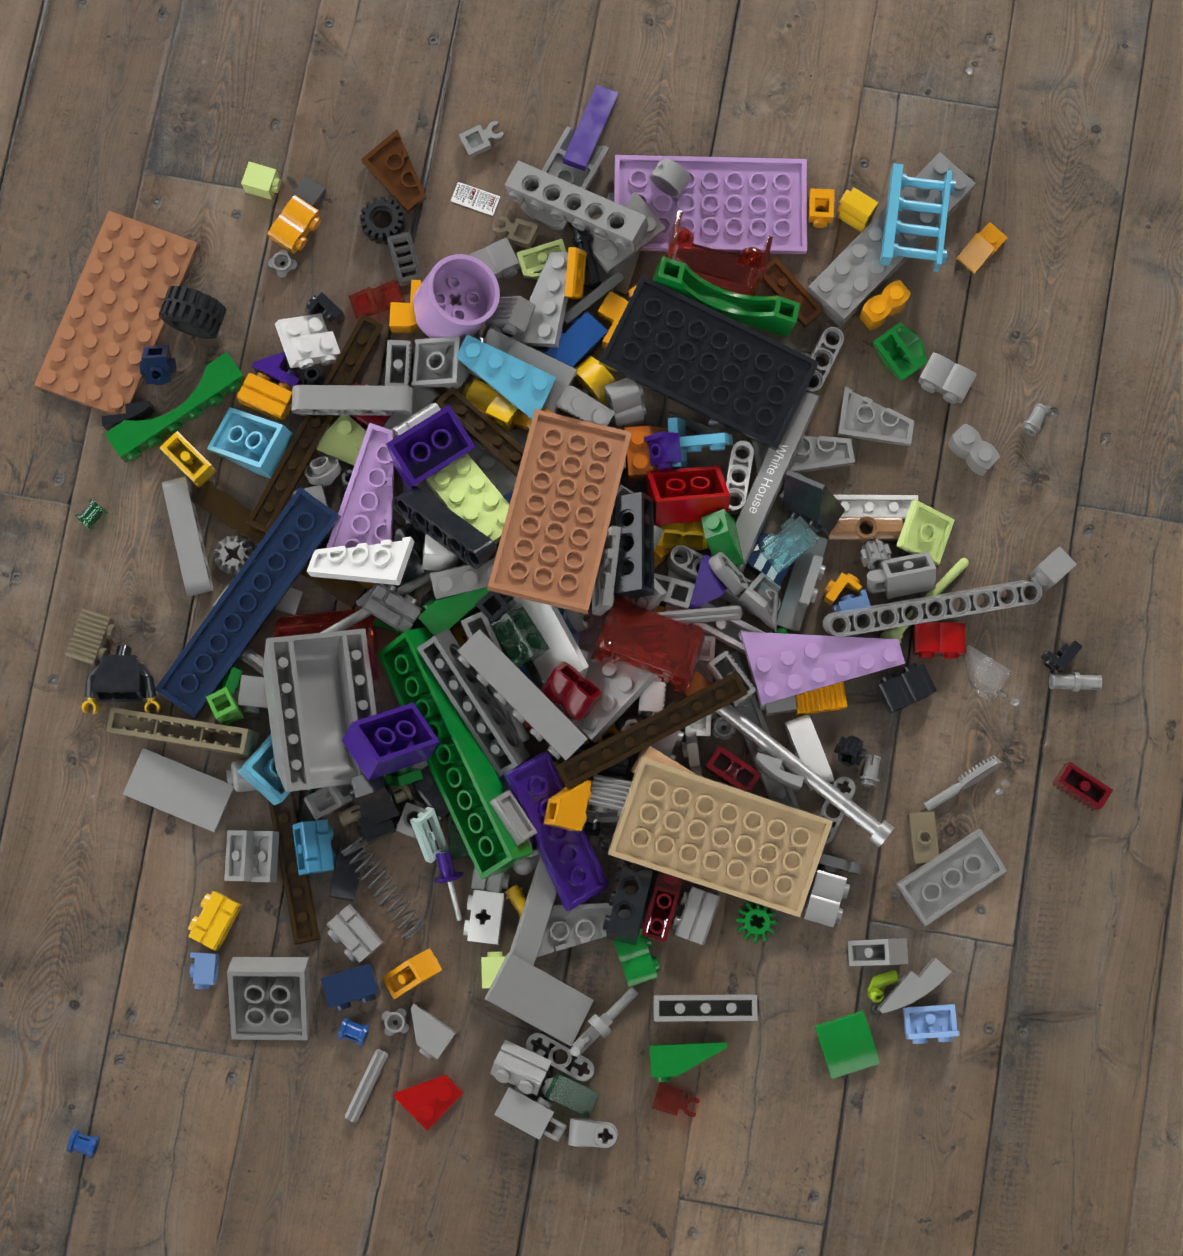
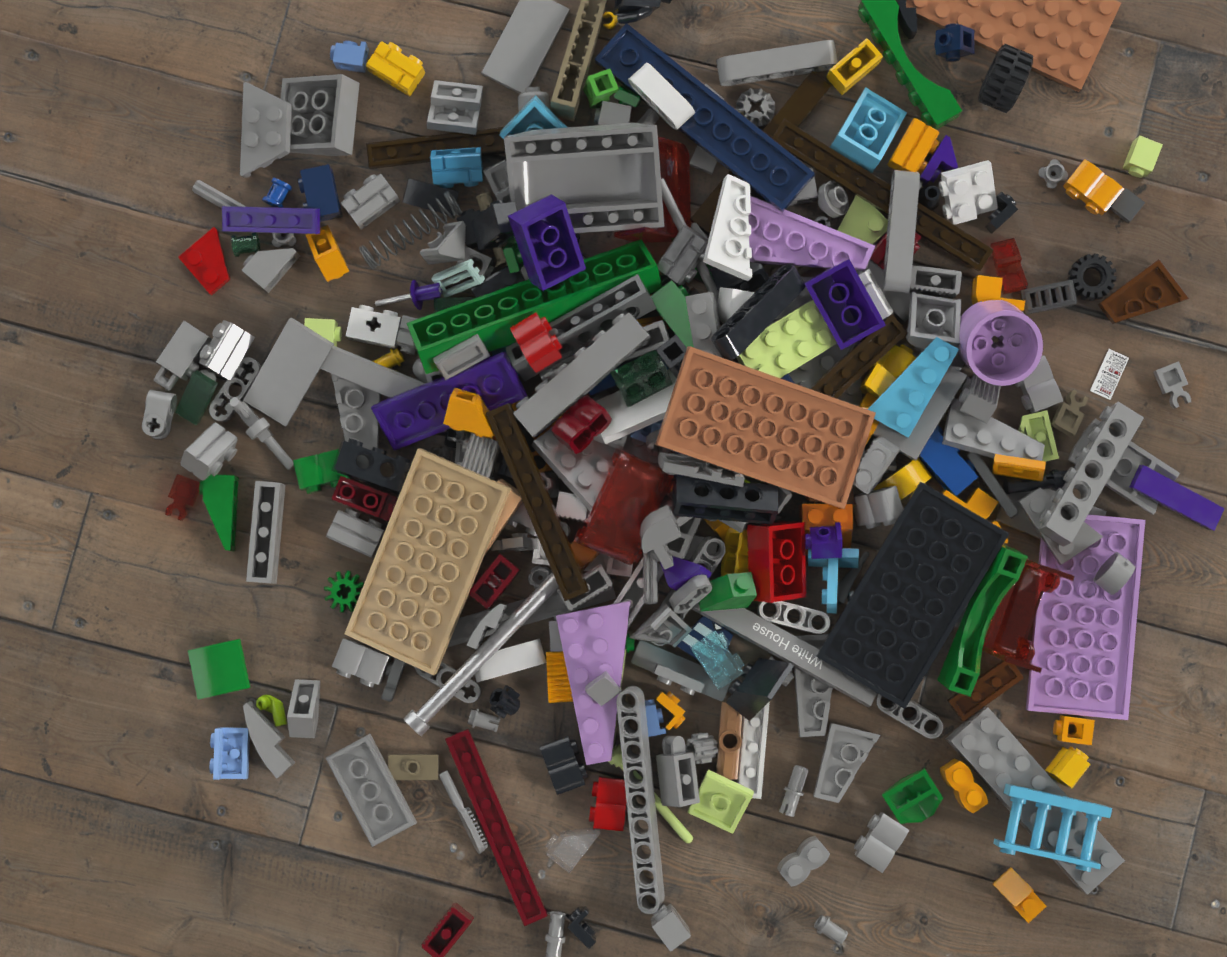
camera: 90 degrees right, 5 degrees up
(230, 644) = (661, 96): none -> white beam
(286, 1052) = (264, 129): none -> light grey wing
(382, 1034) = (271, 219): none -> dark purple tile
(396, 846) = (448, 246): none -> light grey slope
(409, 1059) = (245, 244): none -> clear green bush
(493, 741) = (536, 342): none -> red brick
(628, 1074) = (209, 451): none -> light grey brick
(671, 607) = (658, 530): none -> light grey brick
(829, 651) = (602, 689): none -> light grey slope
(906, 464) = (794, 790): none -> light grey axle
(973, 749) = (496, 827): none -> dark red plate

